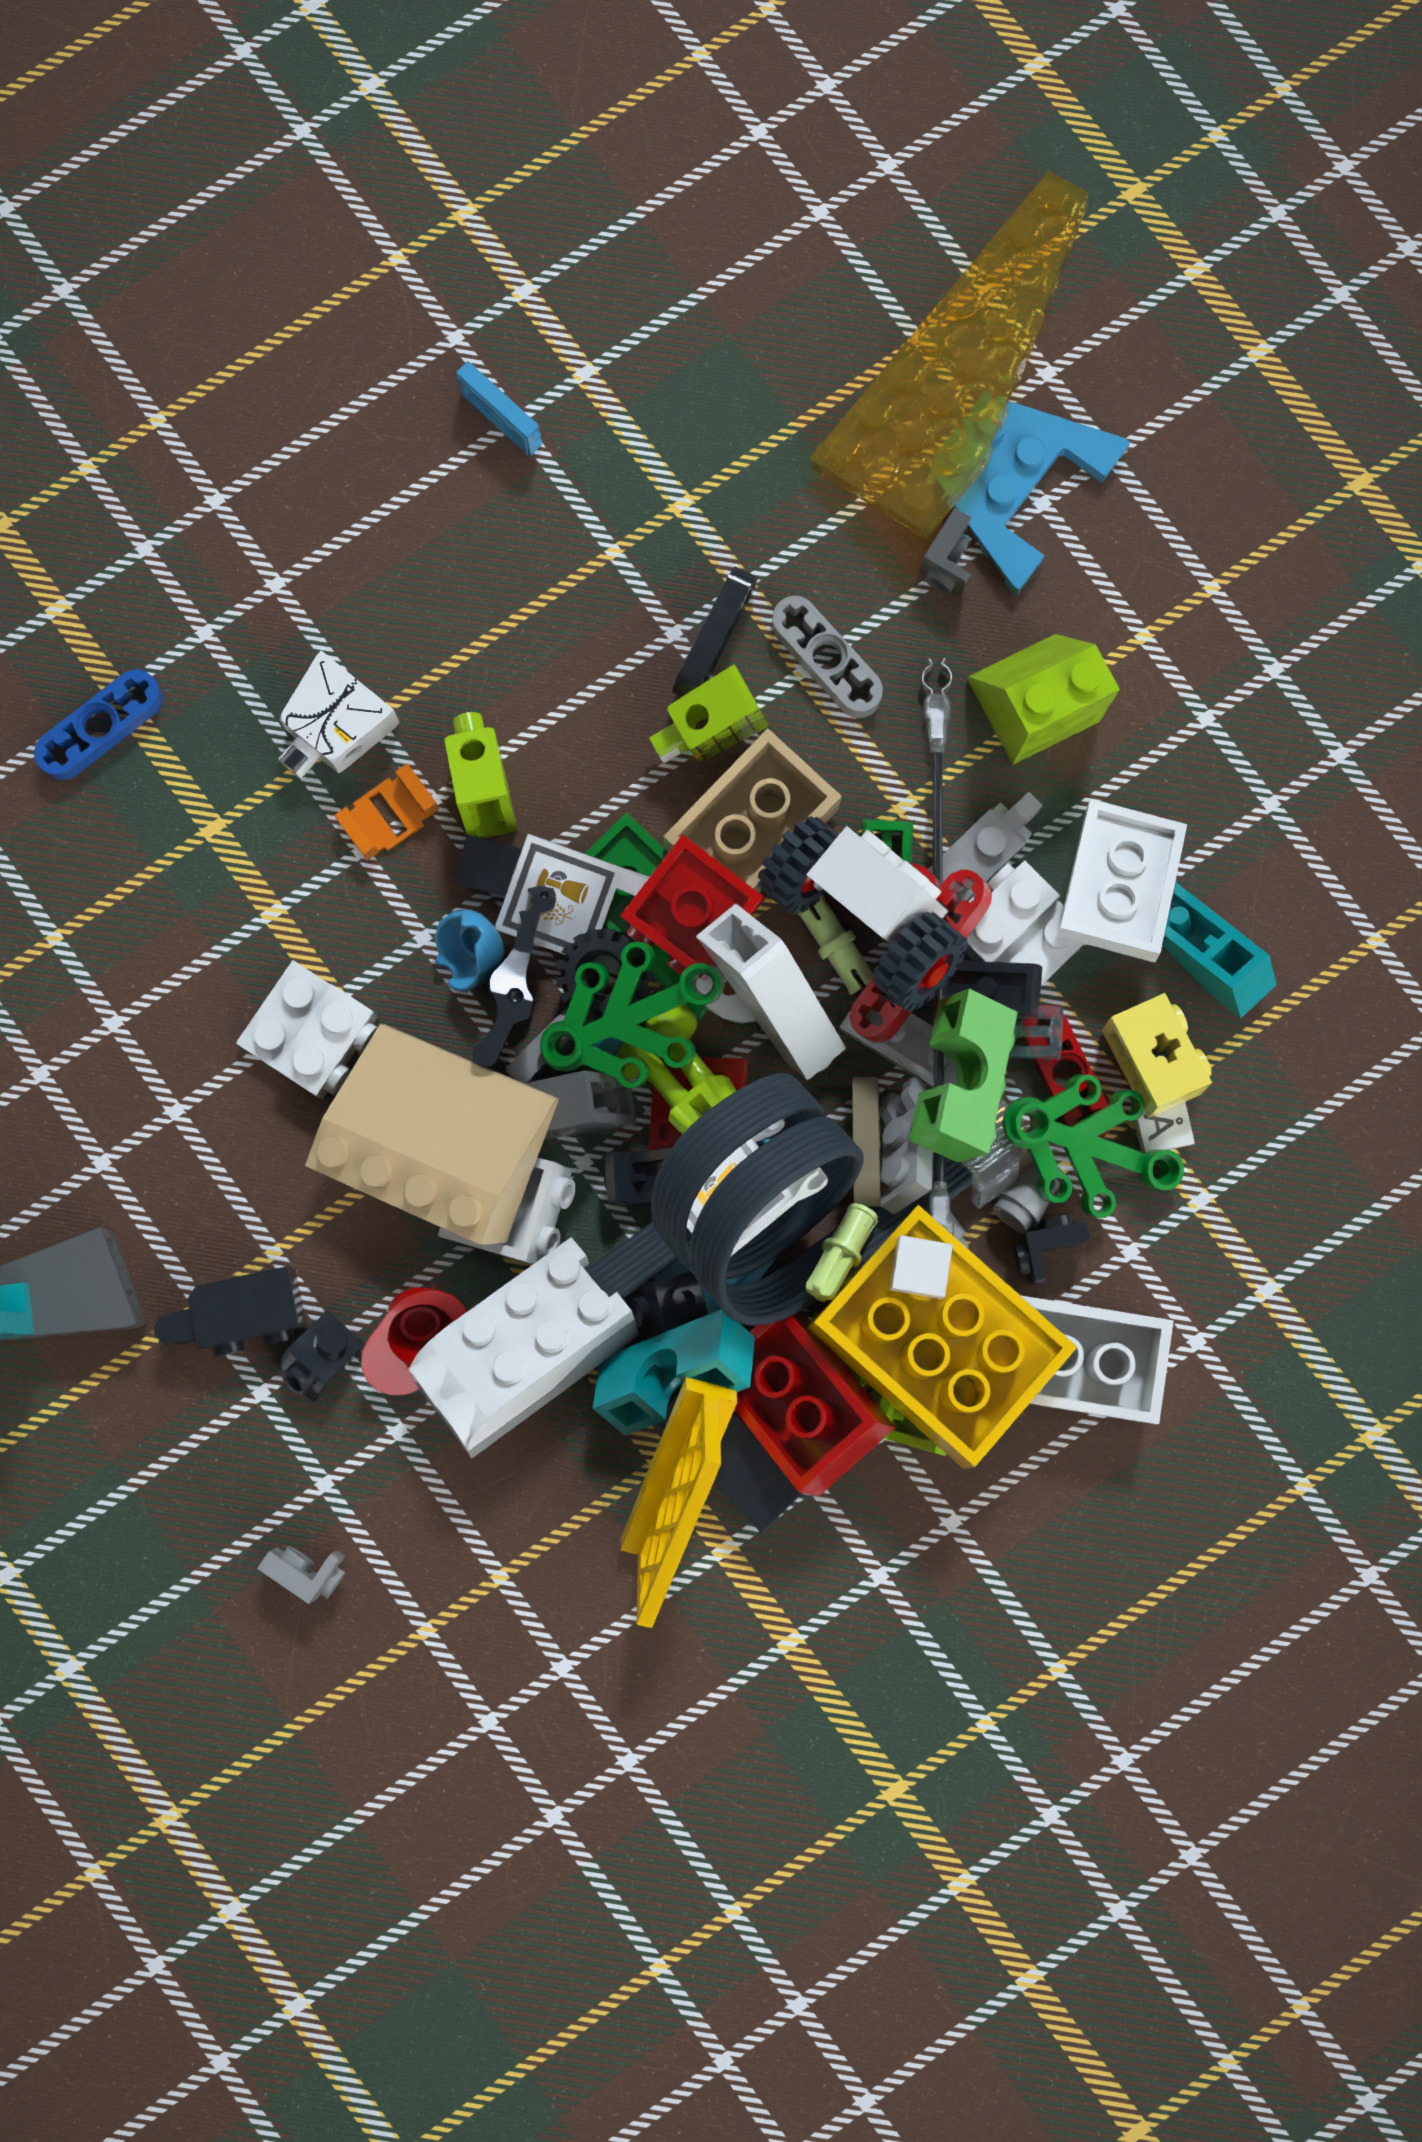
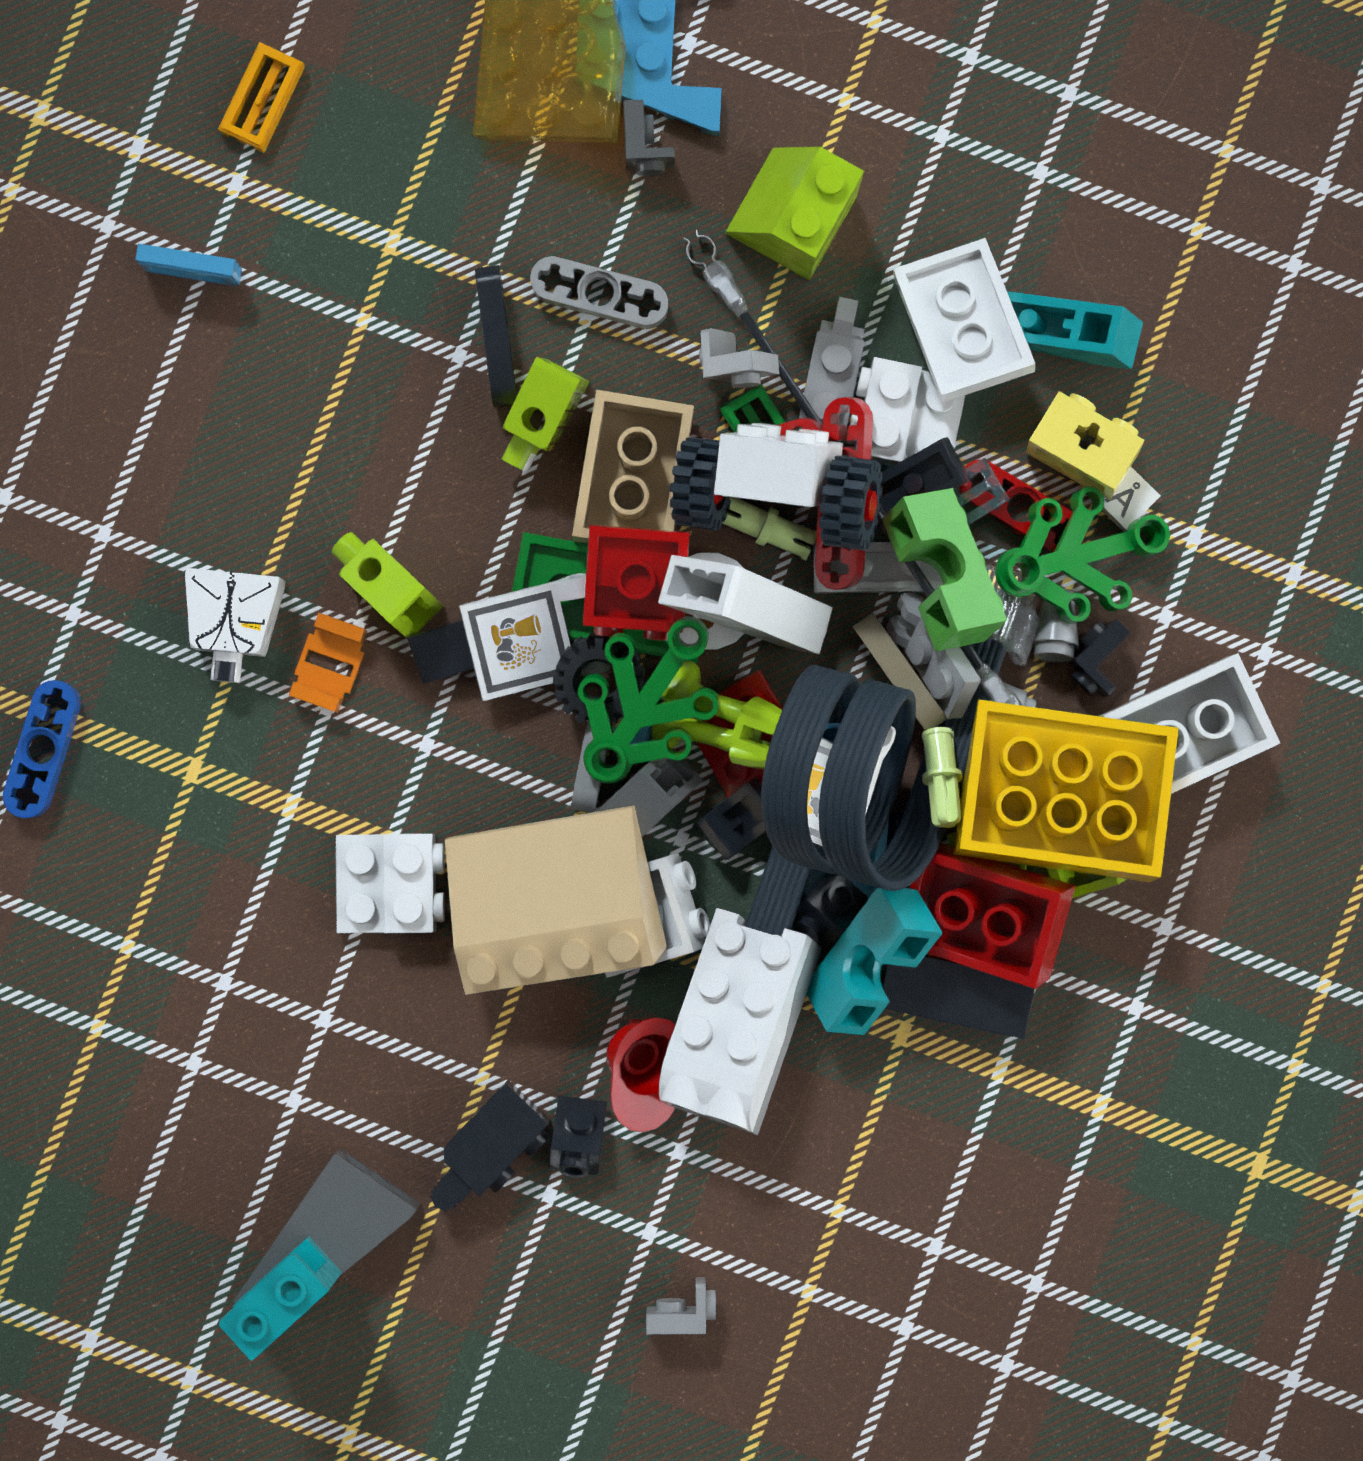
camera: 35 degrees left, 5 degrees up
(468, 948) = (475, 731): dark azure hair -> none
(510, 980) = (528, 735): black animal -> none
(662, 332) = (278, 106): none -> light orange tile
(676, 1489) = (938, 1052): yellow fence -> none
(901, 792) = (725, 364): none -> light grey bracket
(920, 1267) = (1014, 748): white tile -> none

